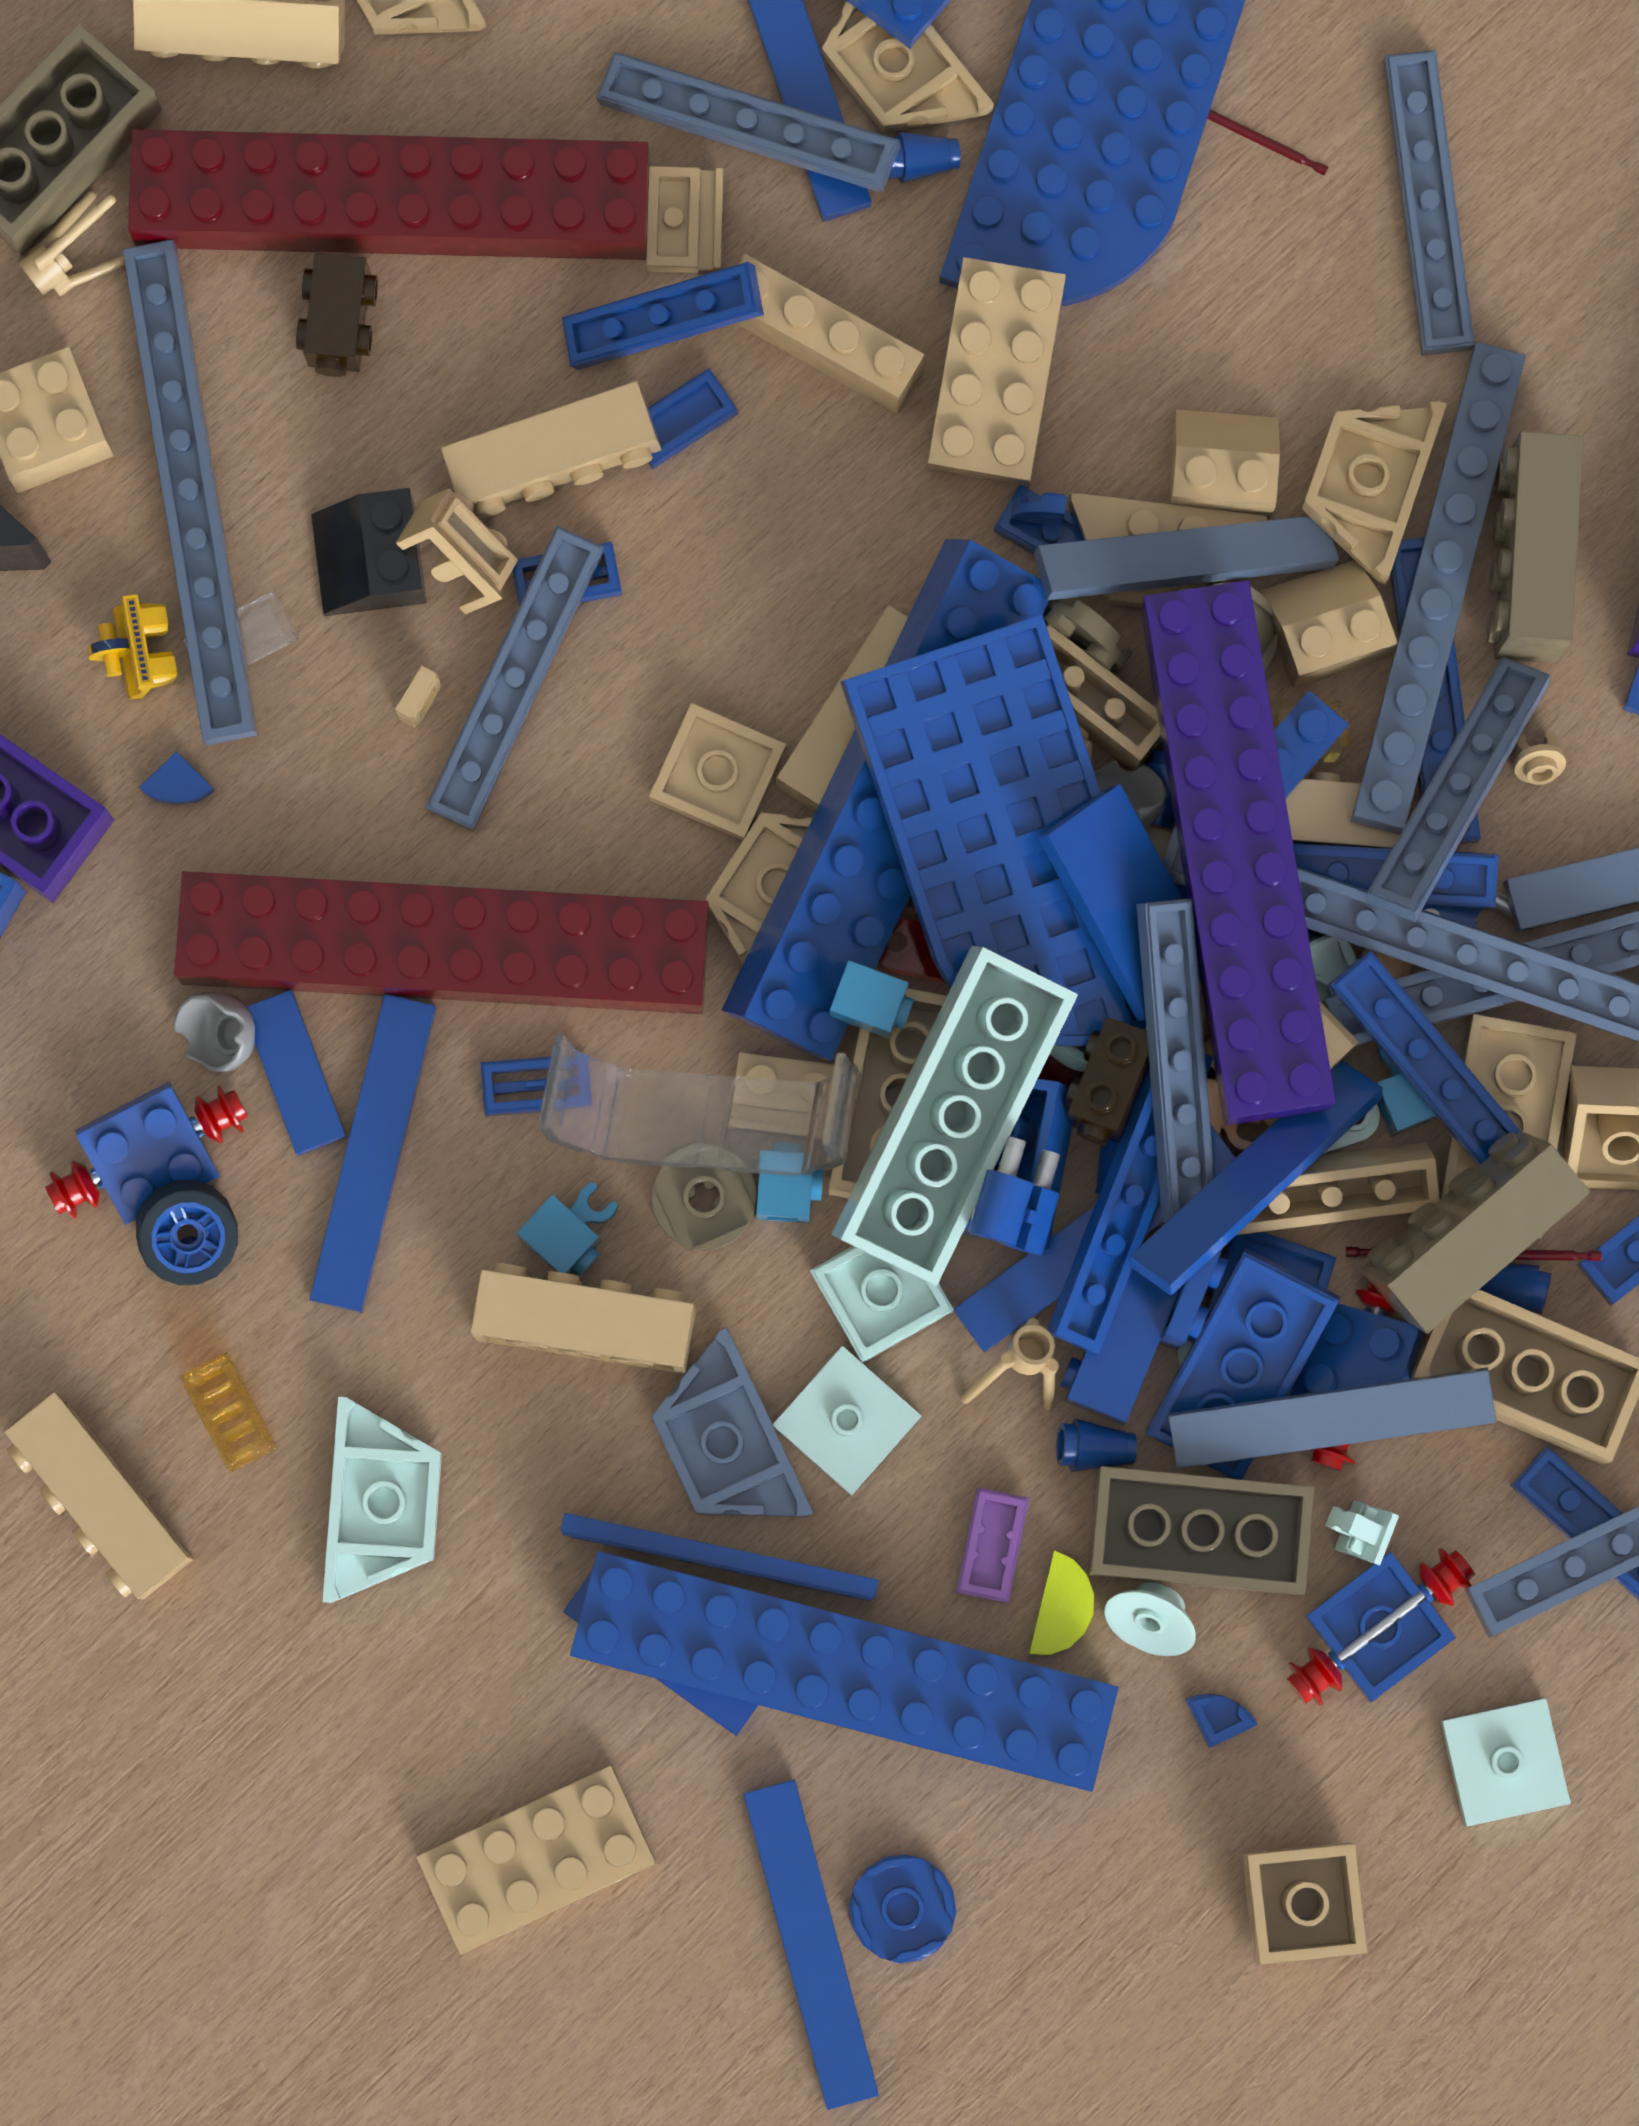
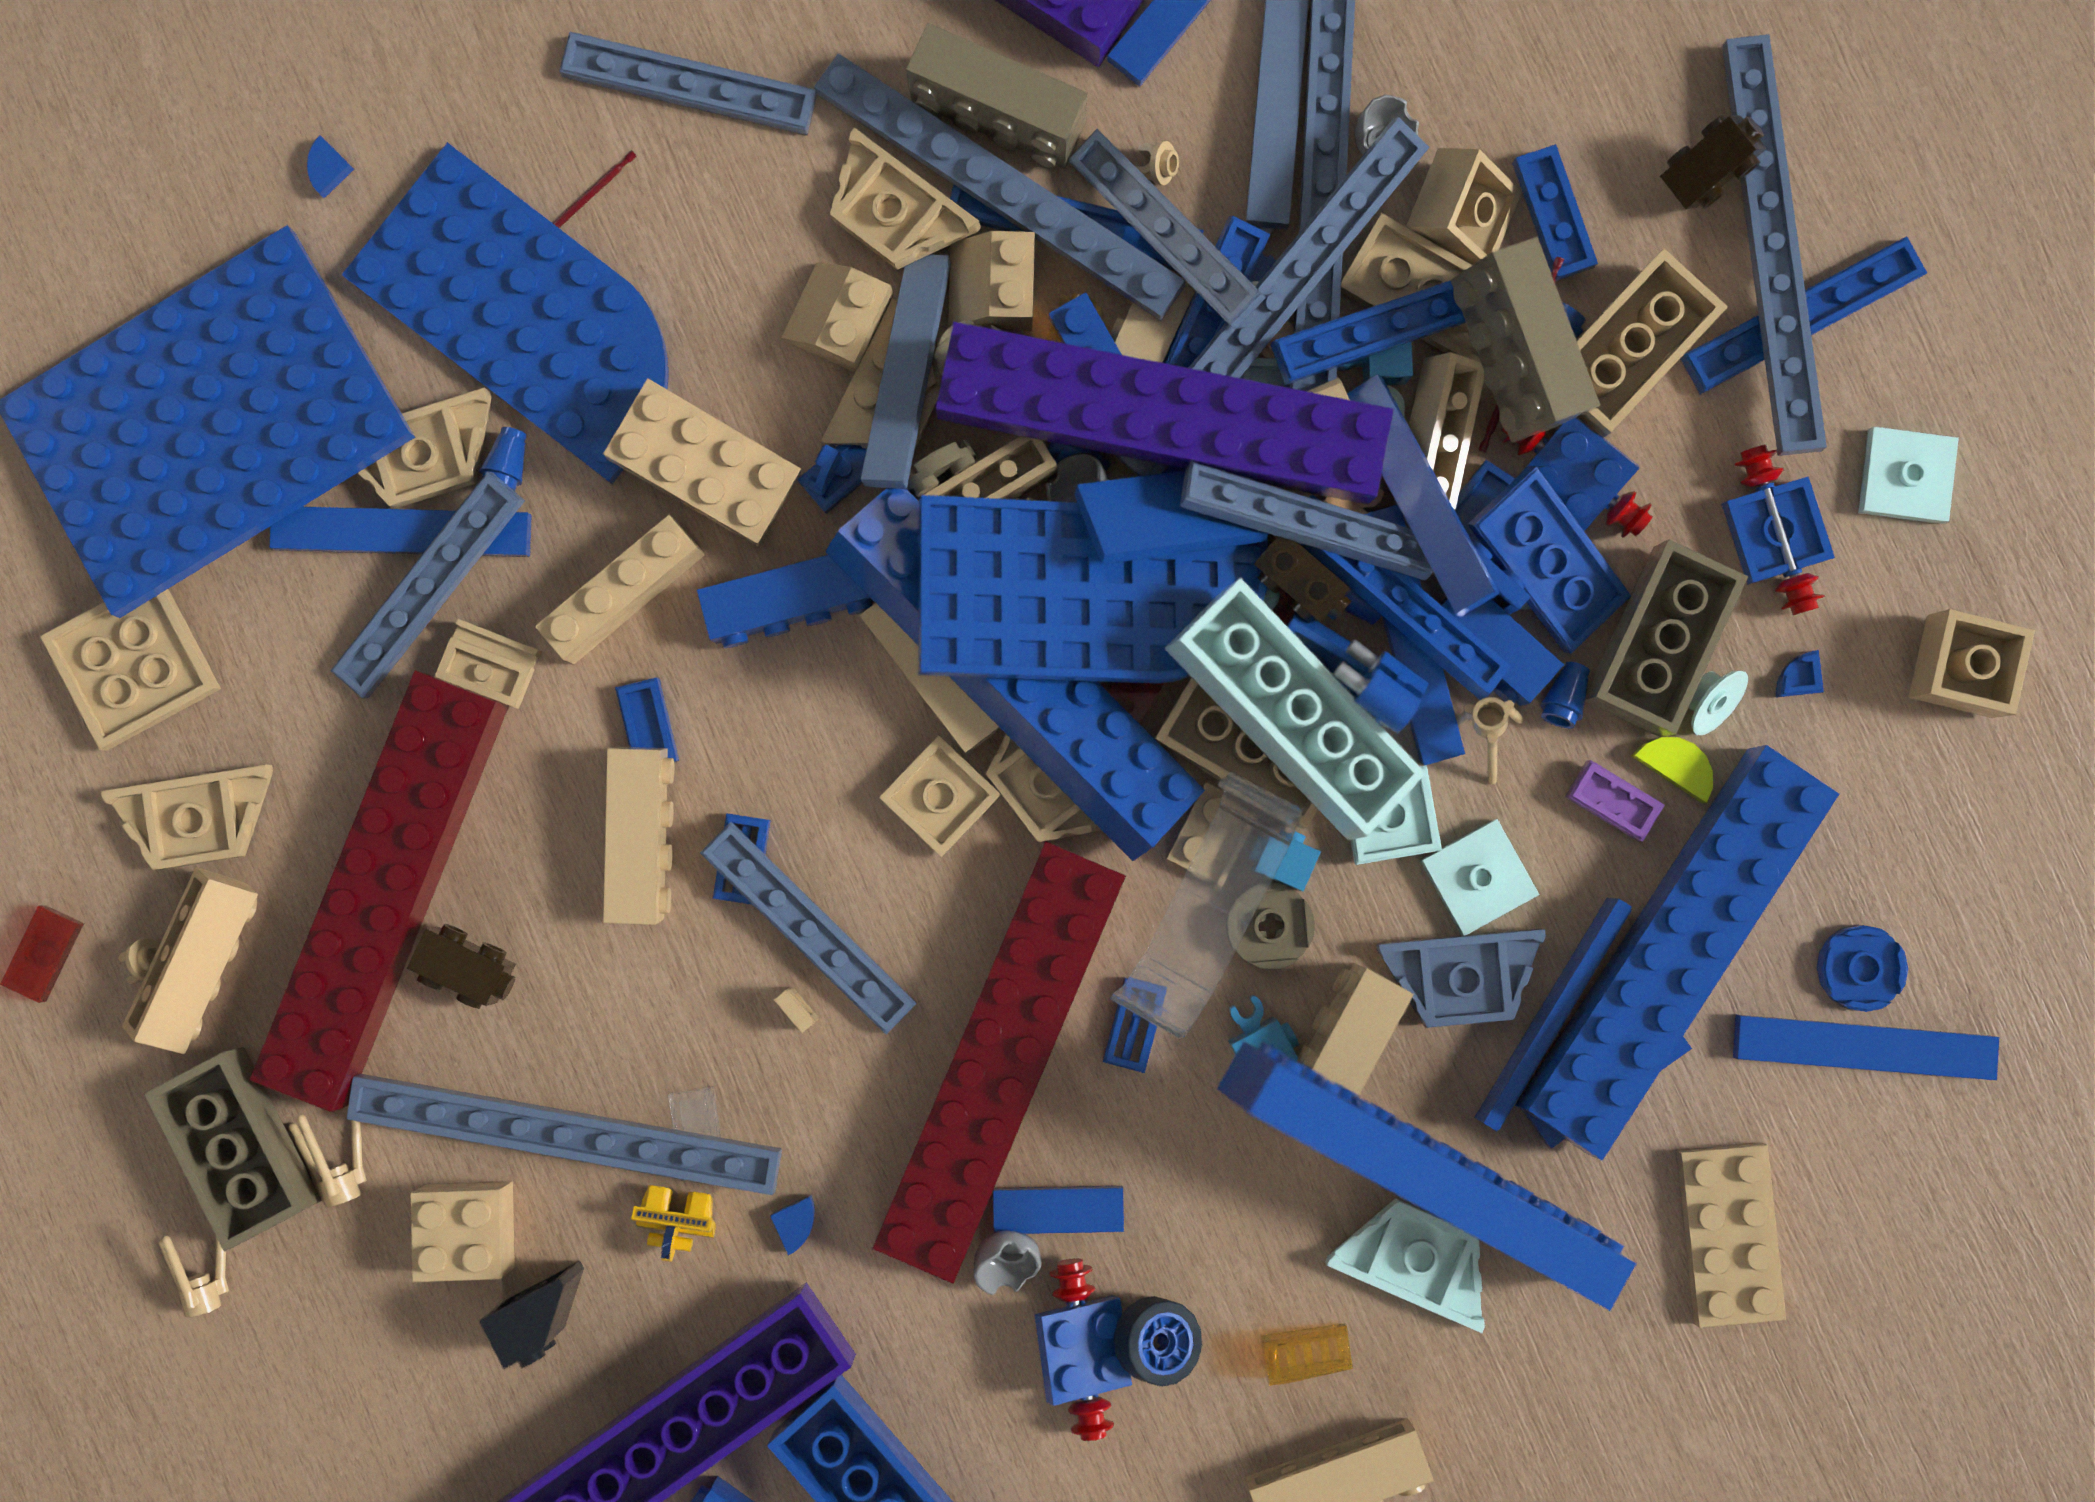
camera: 70 degrees left, 5 degrees up
(360, 557) = (666, 1007): black slope -> none
(373, 1153) = (1144, 1170): blue tile -> none
(467, 547) = (690, 932): tan window -> none
(483, 1448) = (1426, 1172): none -> blue brick
(663, 316) = (561, 708): blue tile -> none
(871, 1000) = (1177, 742): dark azure brick -> none
(872, 509) = (779, 598): none -> blue brick
(1332, 1417) = (1620, 504): sand blue tile -> none
(1362, 1530) = (1703, 515): light aqua brick -> none

